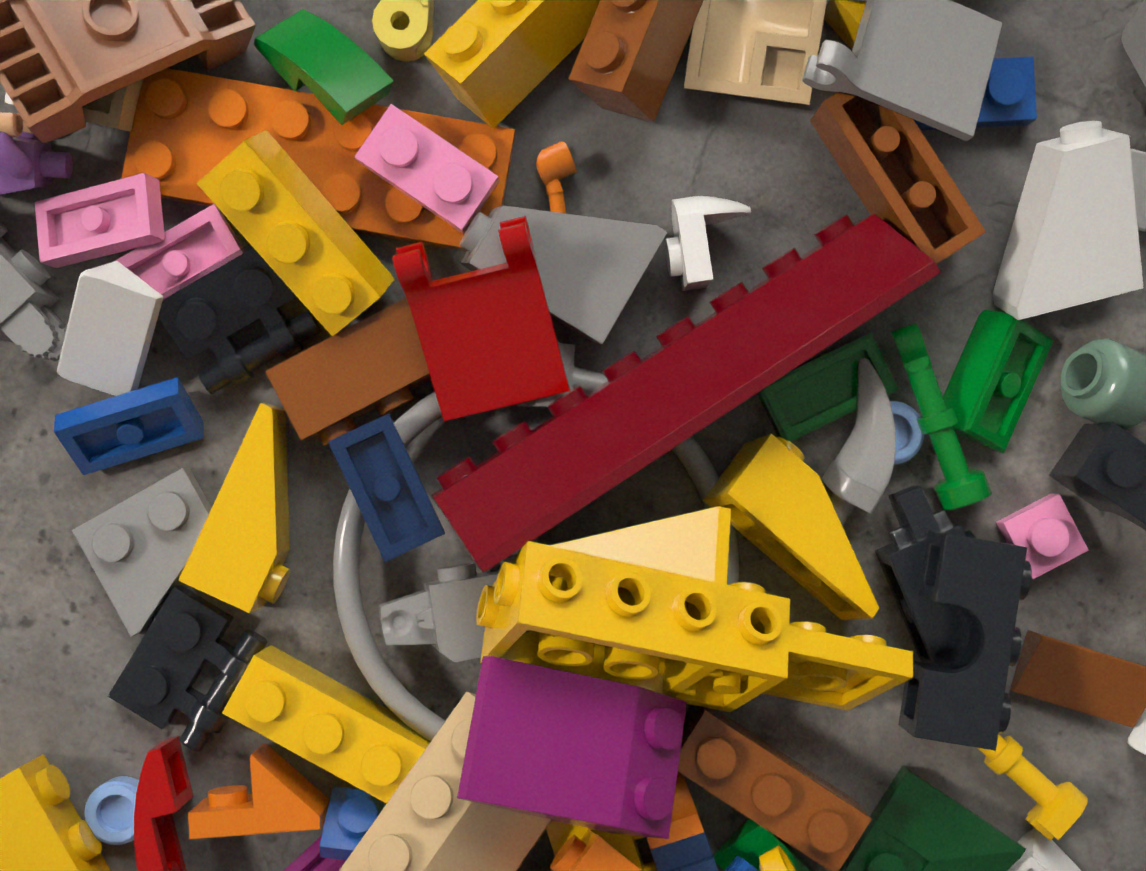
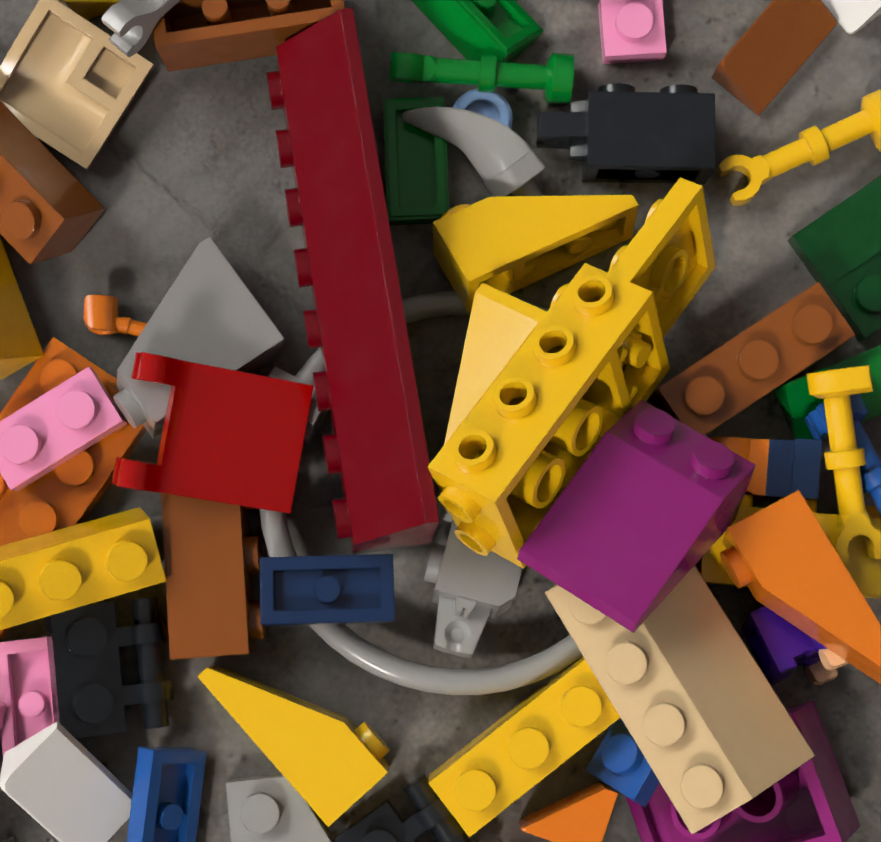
camera: 60 degrees left, 5 degrees down
(688, 250) = (233, 225): white plate -> none
(966, 695) = (650, 92): black arch -> none

